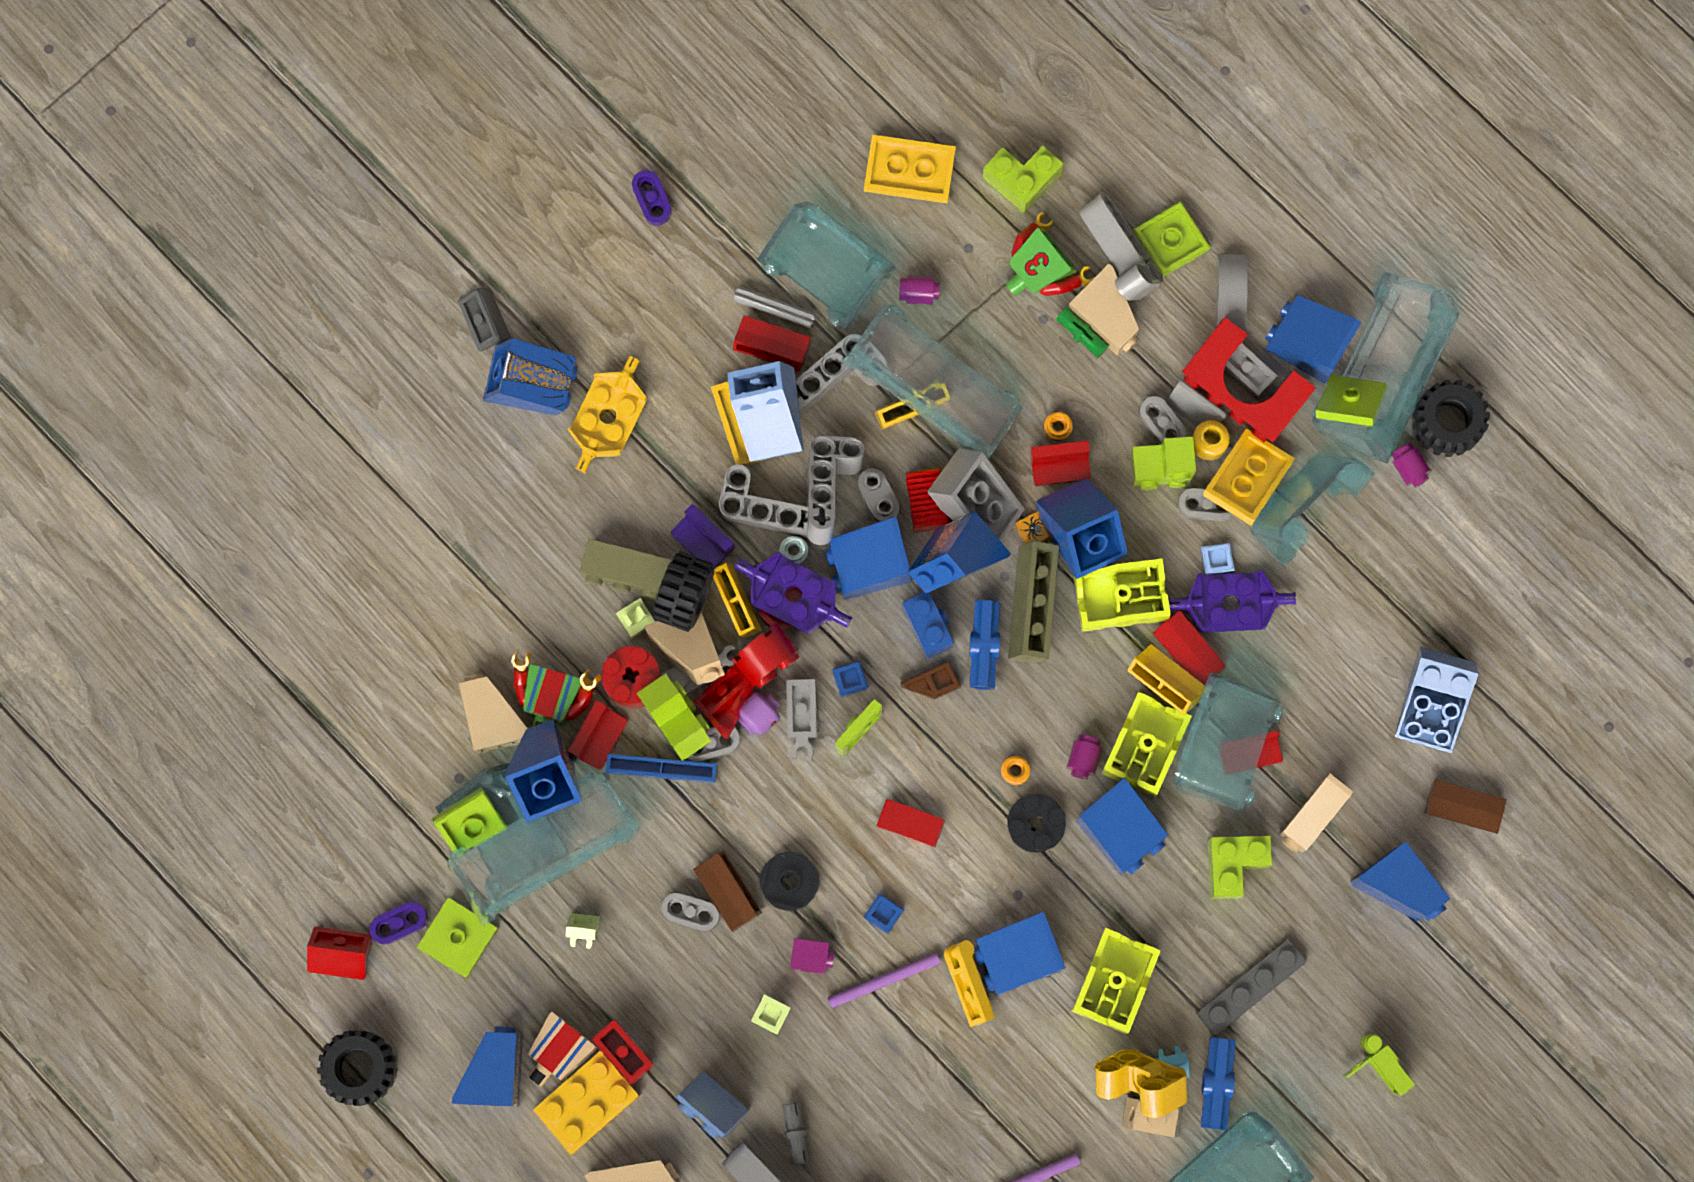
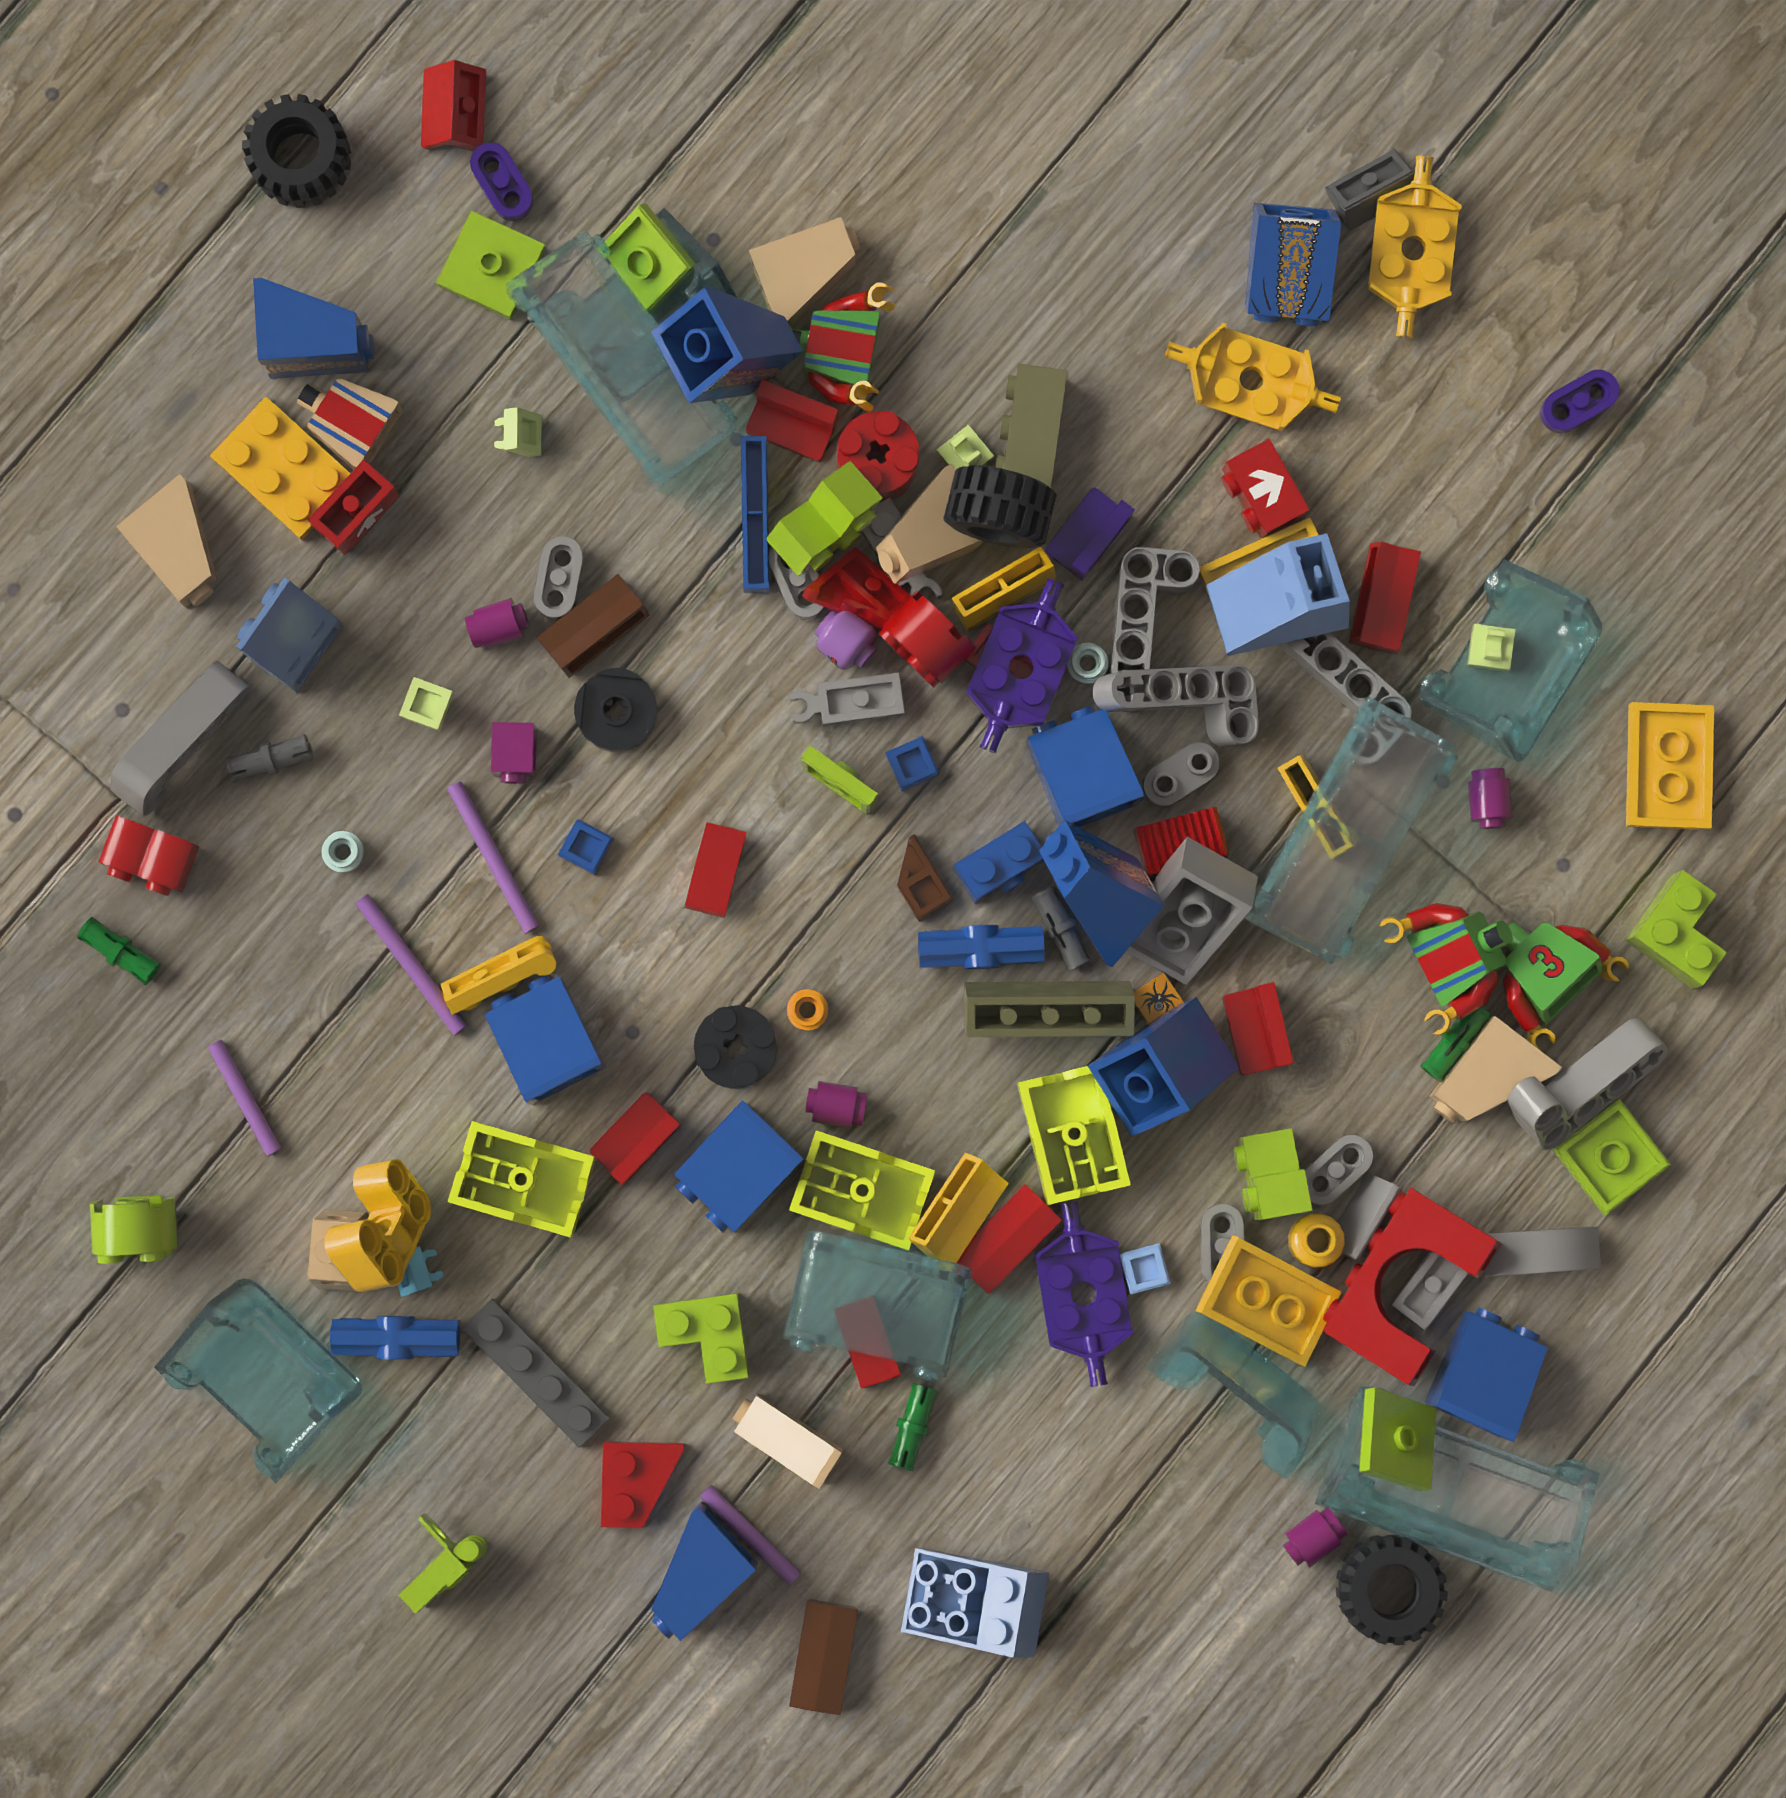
camera: 75 degrees right, 5 degrees up
(513, 280) = (1421, 214): none -> yellow plate
(687, 415) = (1264, 490): none -> red brick
(718, 959) = (496, 624): none -> magenta brick
(774, 307) = (1440, 595): light grey axle -> none
(815, 277) = (1491, 647): none -> yellowish green tile
(868, 1097) = (331, 845): none -> light aqua plate
(954, 1047) = (409, 963): none -> medium lavender bar
(977, 588) = (1061, 928): none -> dark grey pin
(1024, 324) = (1456, 954): none -> torso
(1062, 418) = (1326, 1020): light orange plate -> none
(1093, 900) = (634, 1138): none -> red panel
(1312, 729) = (912, 1426): none -> green pin
(1332, 925) = (634, 1480): none -> red wing
(1377, 849) = (750, 1535): none -> medium lavender bar

